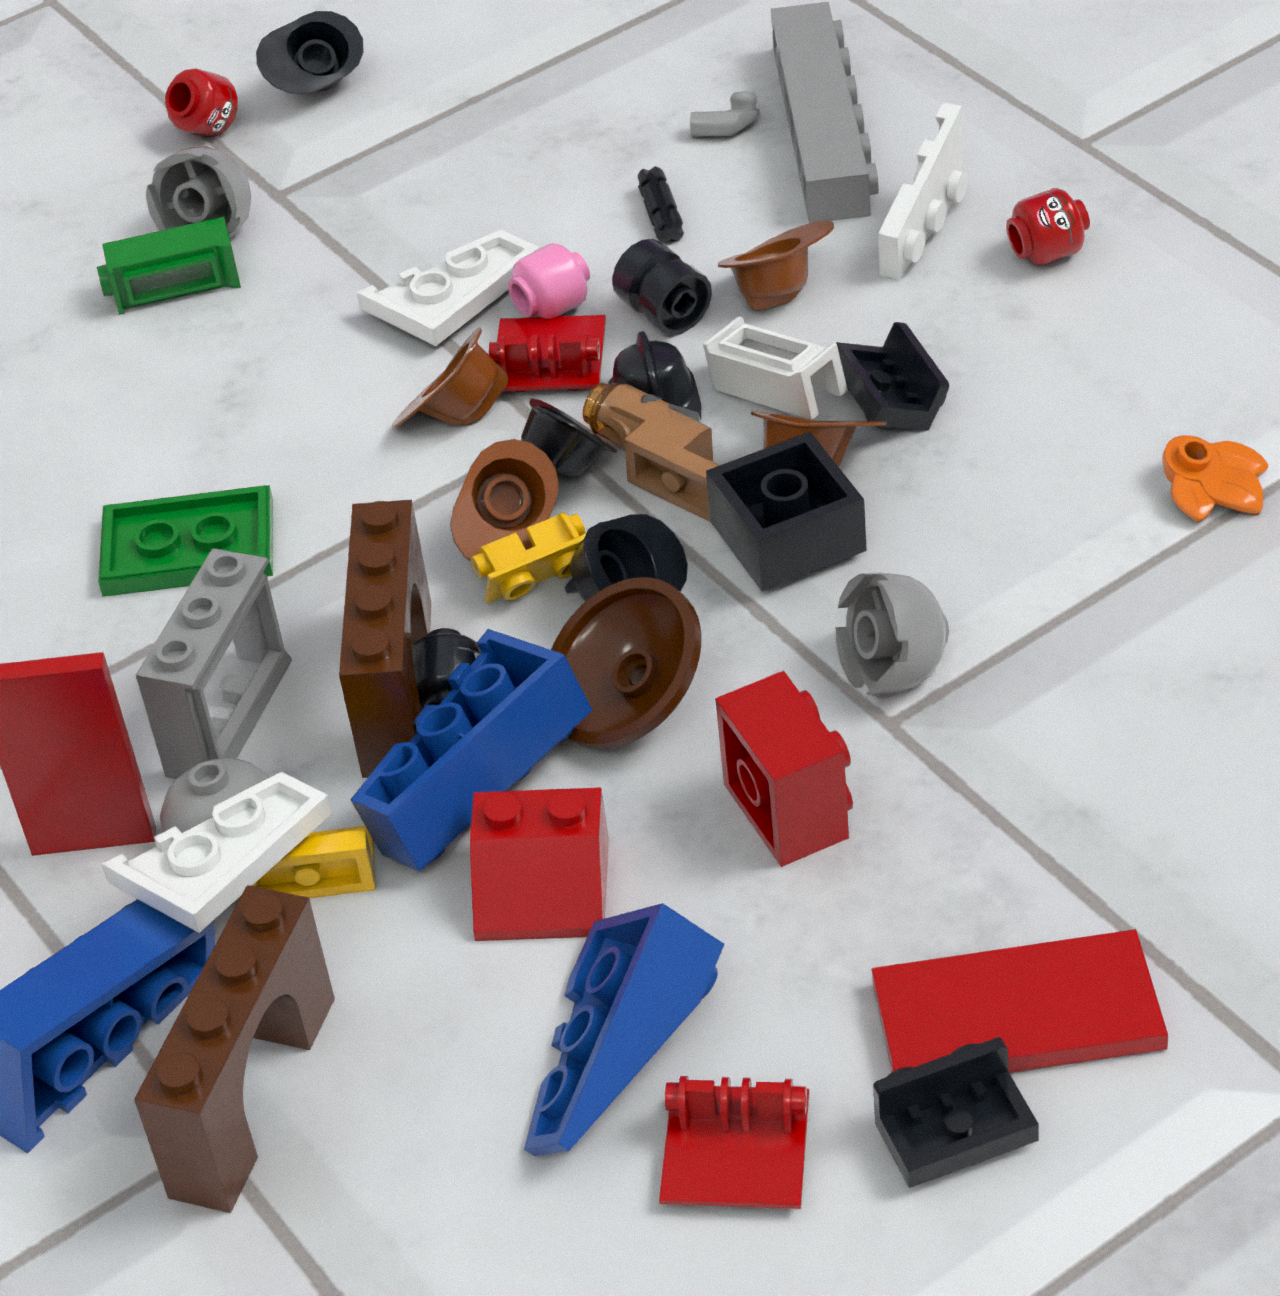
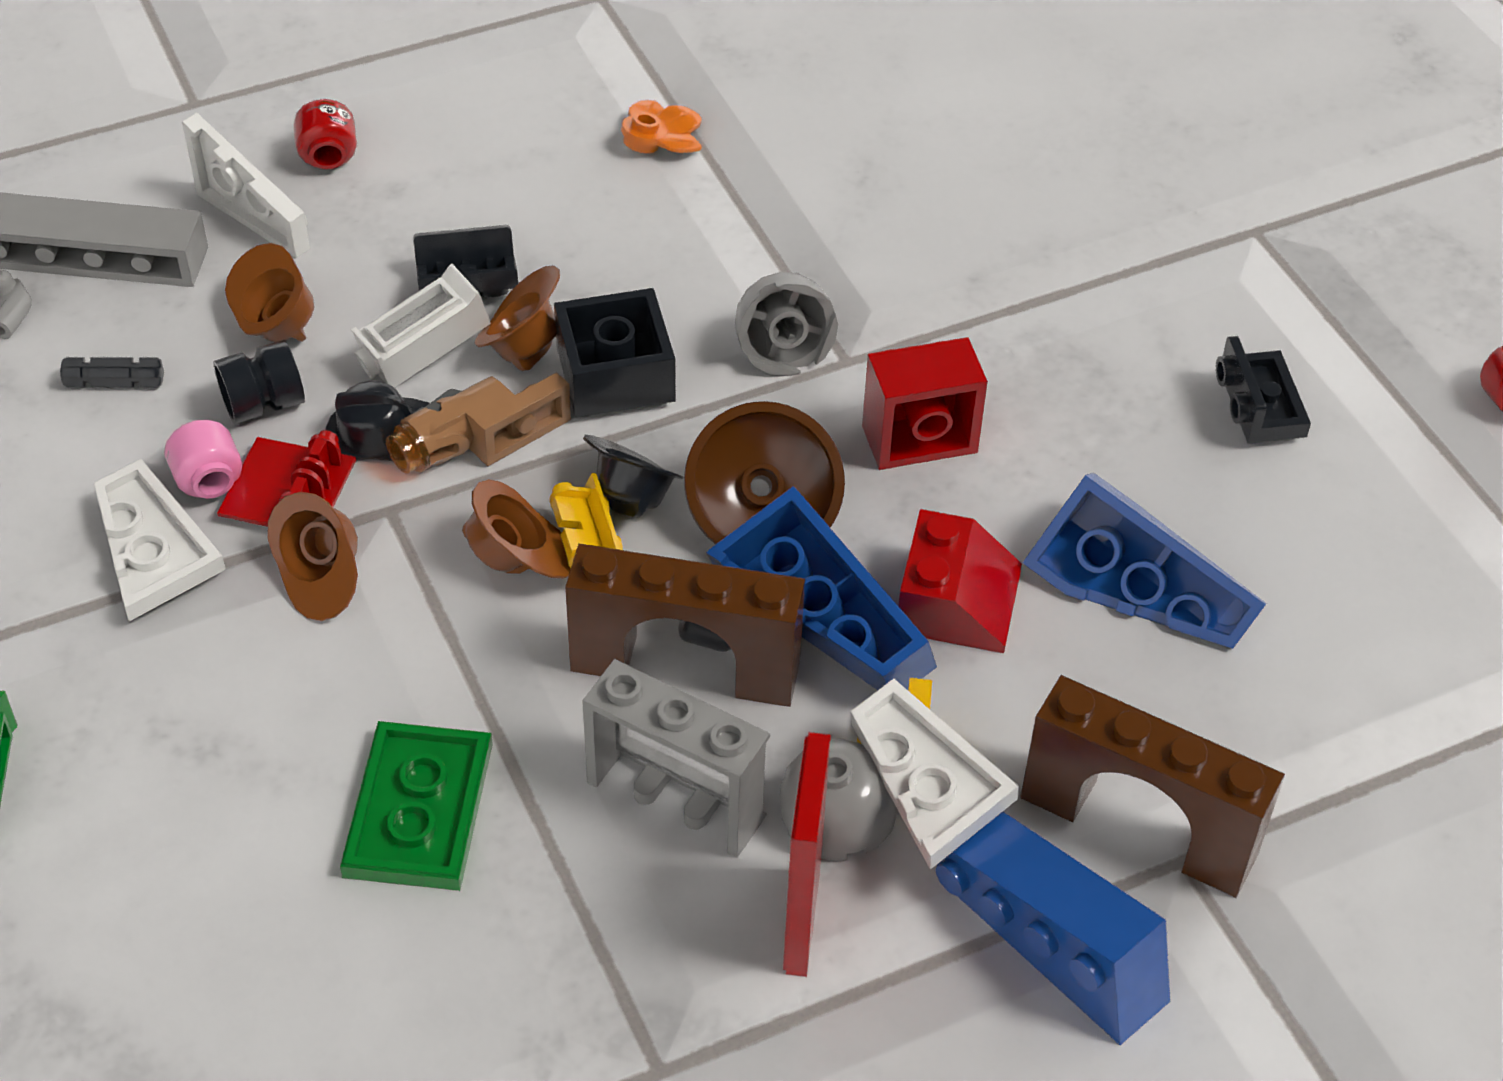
camera: 85 degrees left, 5 degrees up
(563, 439) = (447, 489): black piece -> none
(734, 1144) = (1255, 518): red hinge -> none
(1043, 999) = (1159, 350): red tile -> none

